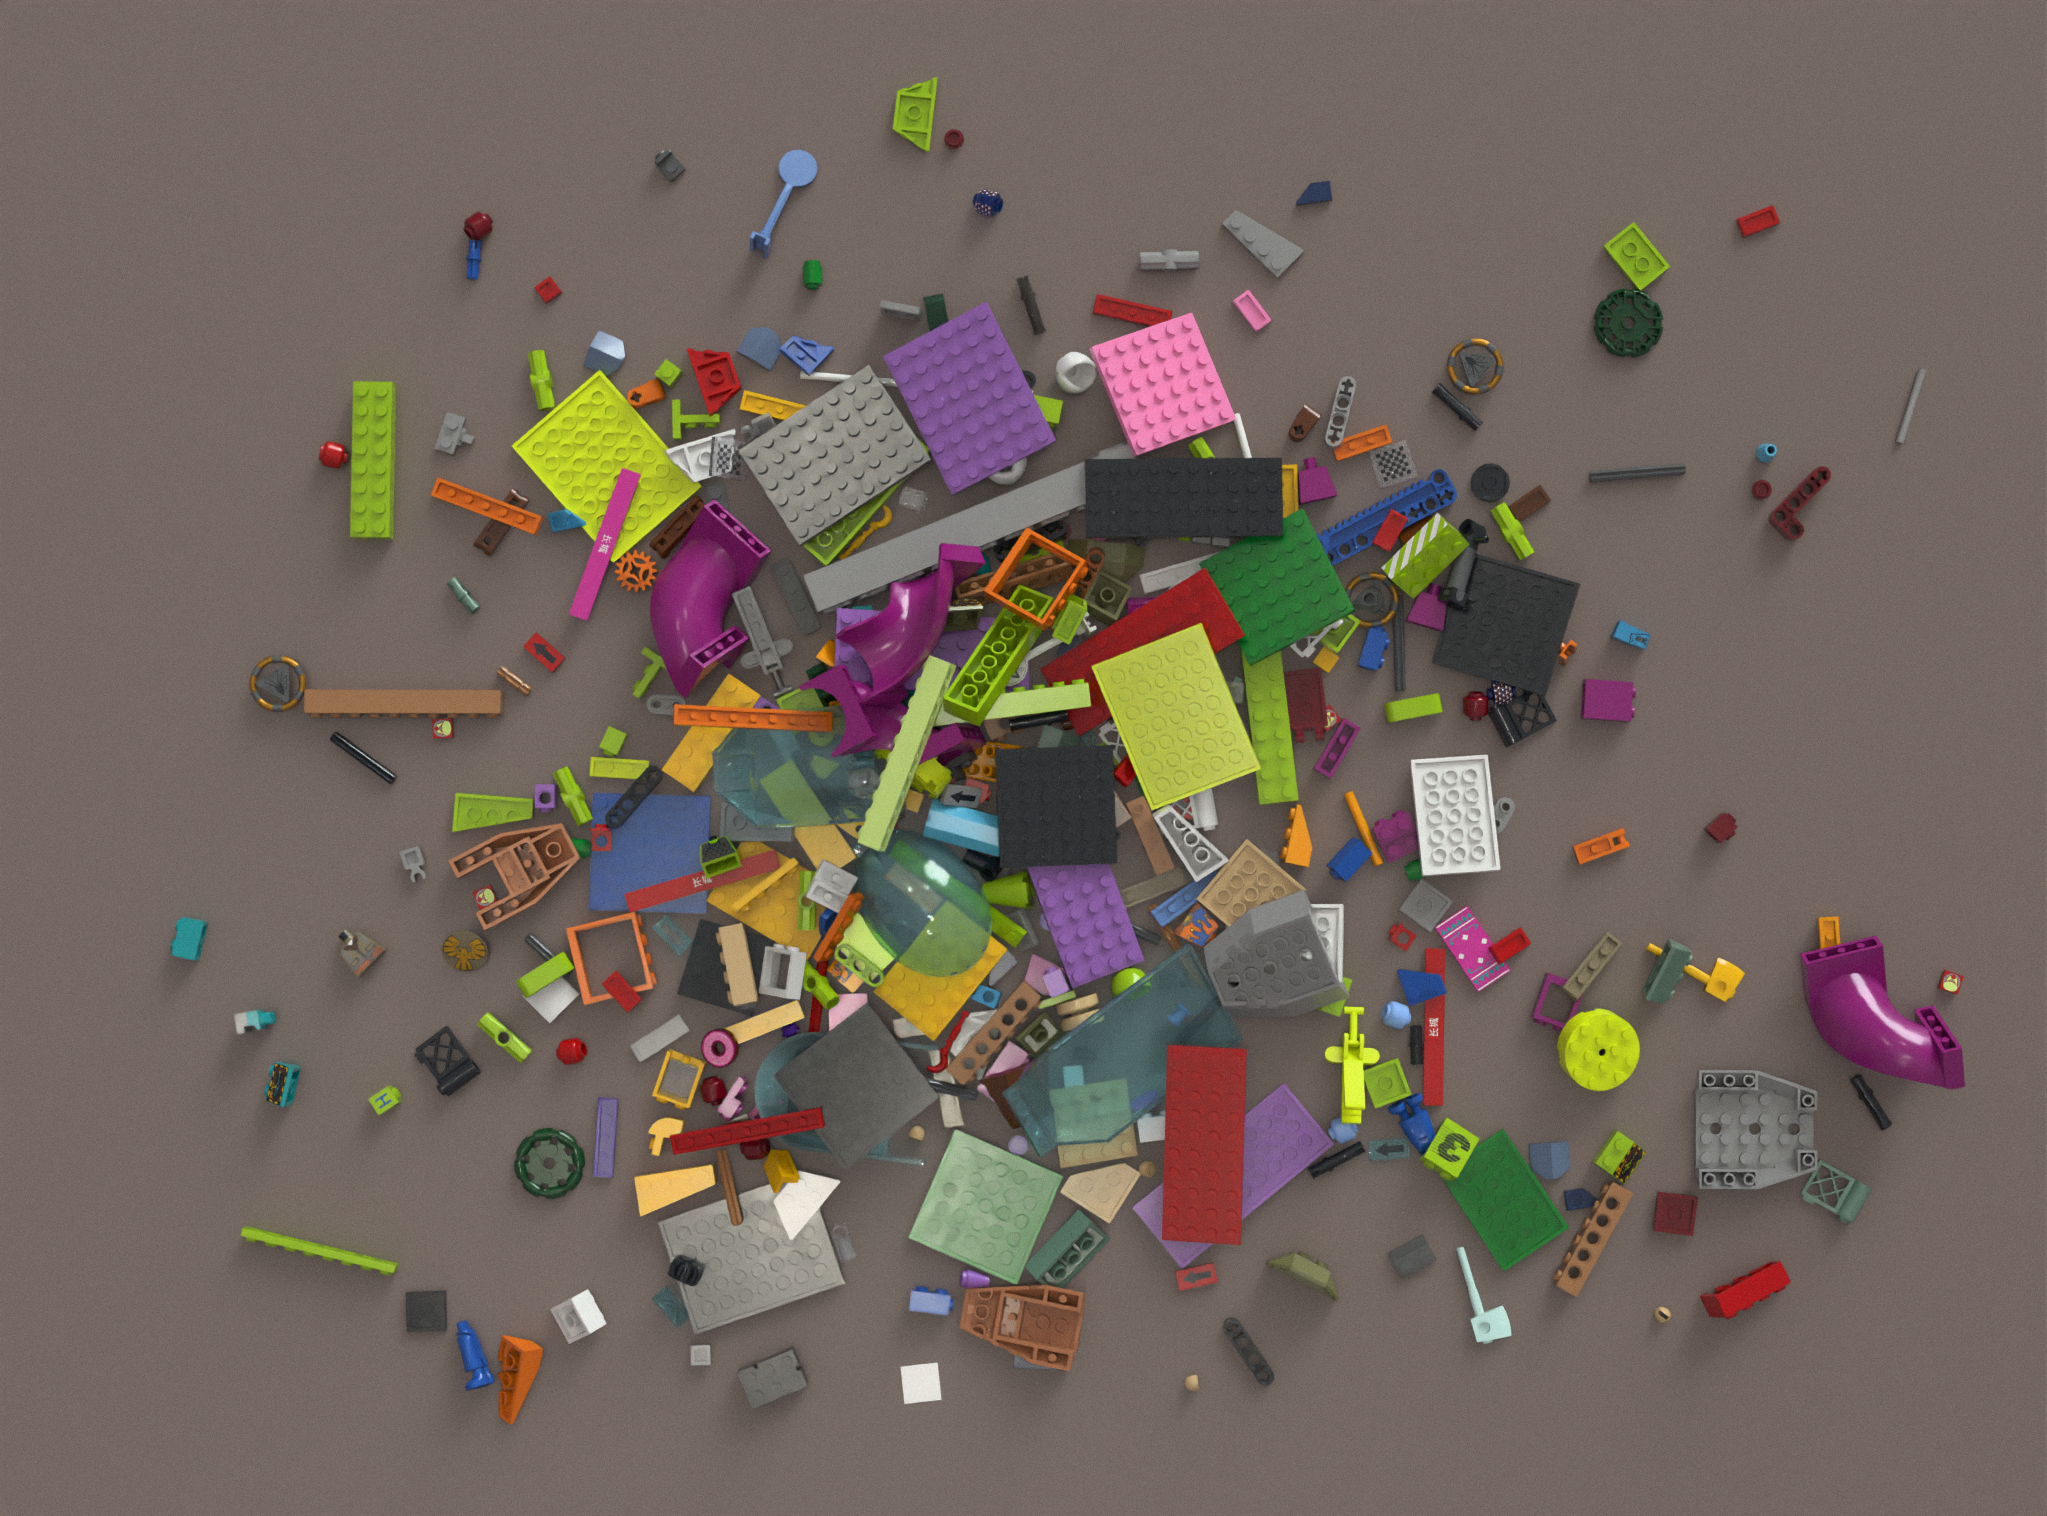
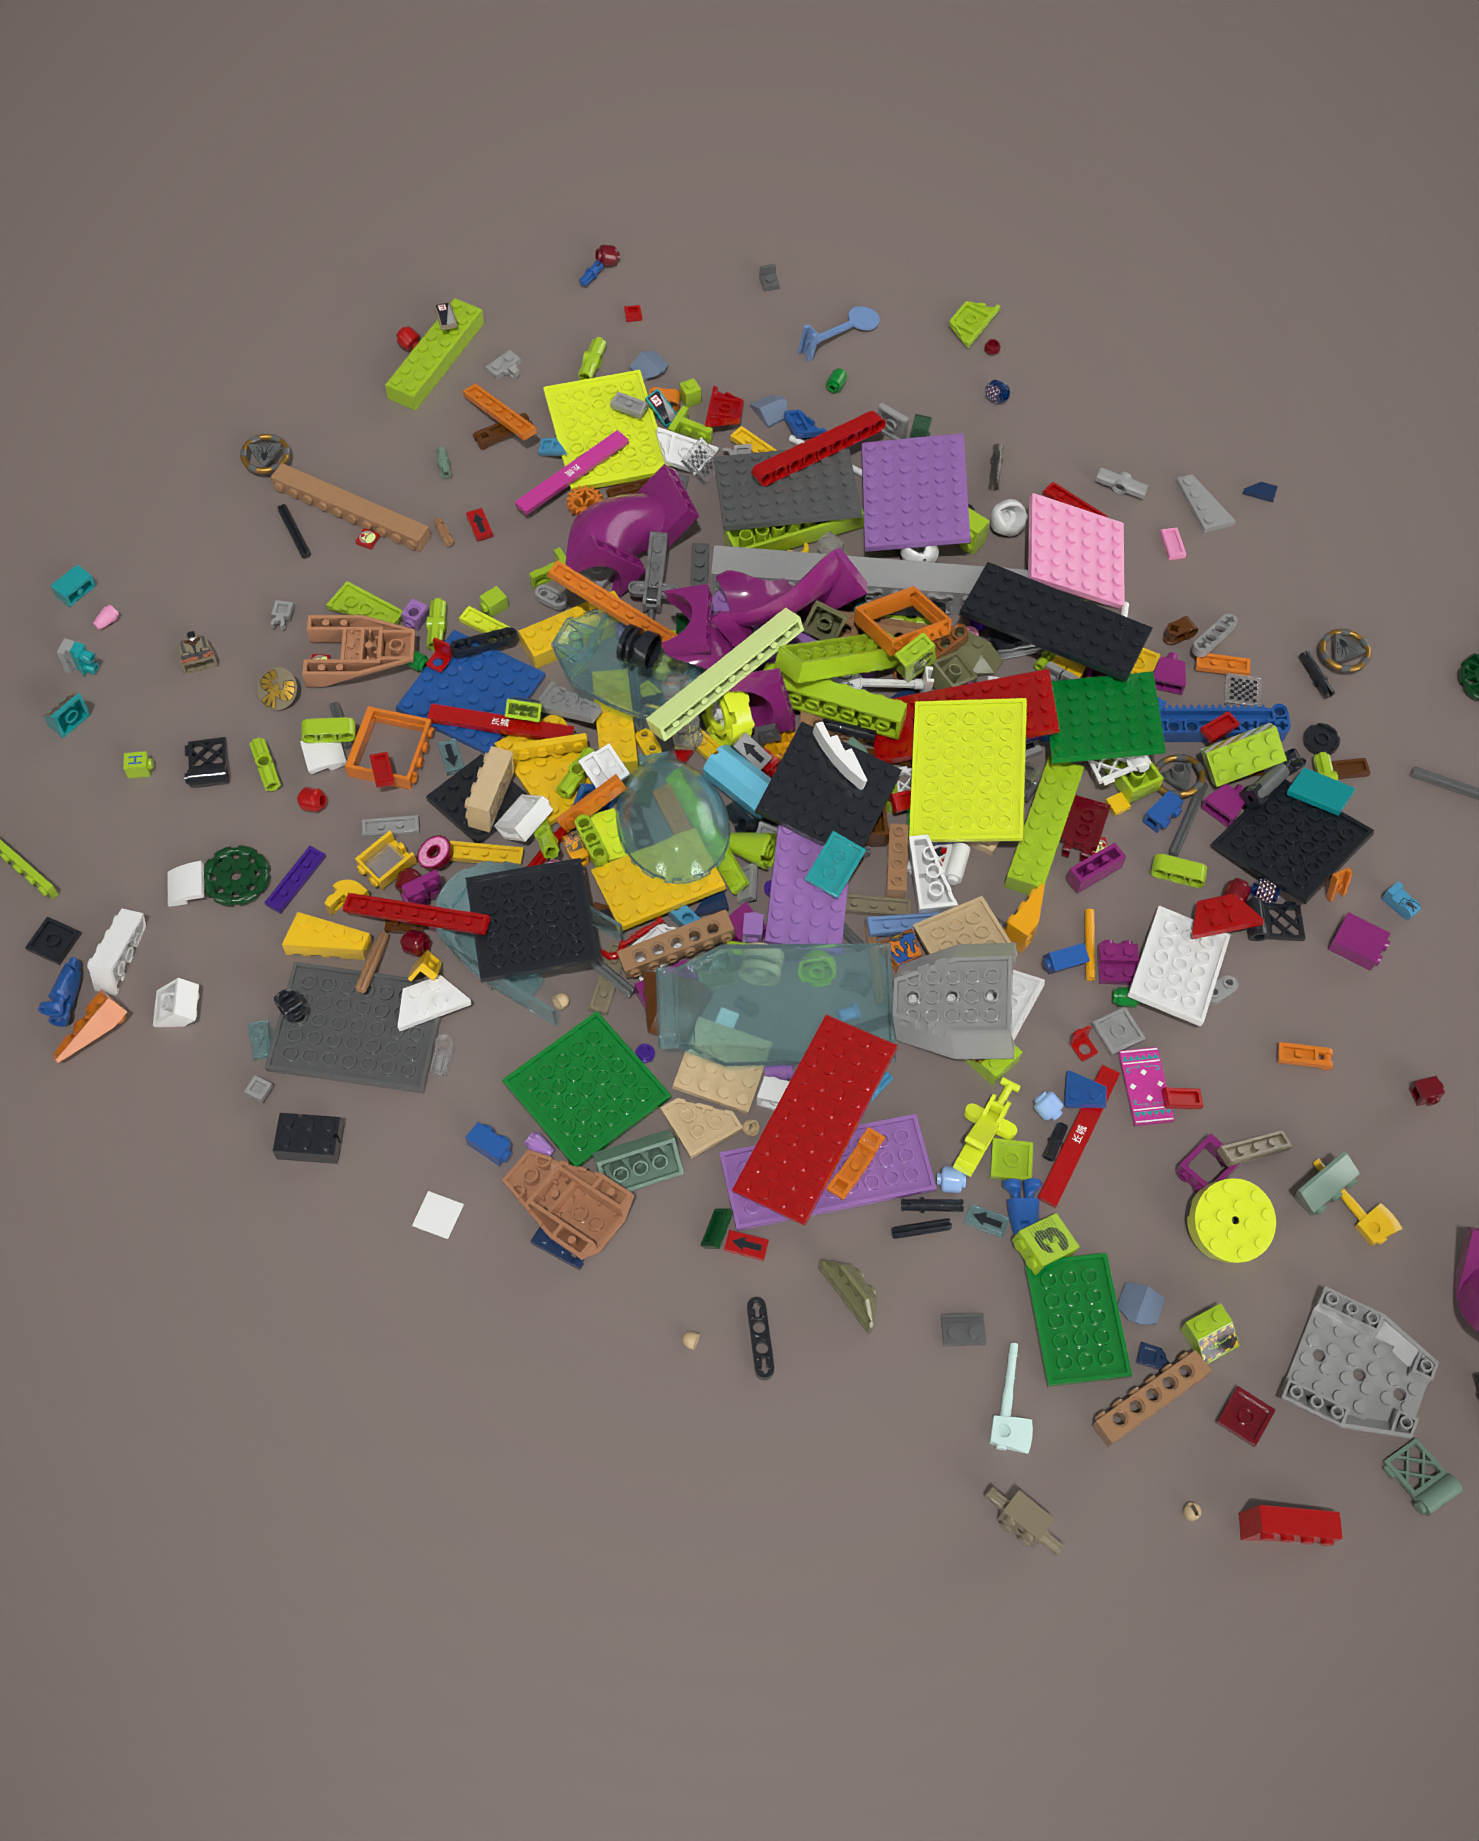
camera: 30 degrees right, 25 degrees down
(245, 956) = (106, 617): none -> bright pink cone
(362, 418) = (445, 316): none -> slope
(492, 1293) = (116, 950): none -> white wedge
(510, 1196) = (185, 883): none -> white slope
(616, 428) = (628, 405): none -> light grey plate
(650, 412) = (661, 407): none -> slope
(801, 751) = (639, 647): none -> black wheel
(846, 395) = (818, 448): none -> red beam
(1059, 774) = (842, 759): none -> white slope
(1099, 882) = (835, 865): none -> teal tile
(1164, 1276) = (716, 1228): none -> dark green plate
(1256, 1162) = (856, 1164): none -> orange slope
(1337, 1184) = (921, 1228): none -> black axle
(1473, 743) = (1223, 915): none -> red wing
(1514, 557) = (1321, 791): none -> teal tile
(1534, 1396) = (1025, 1520): none -> dark tan brick

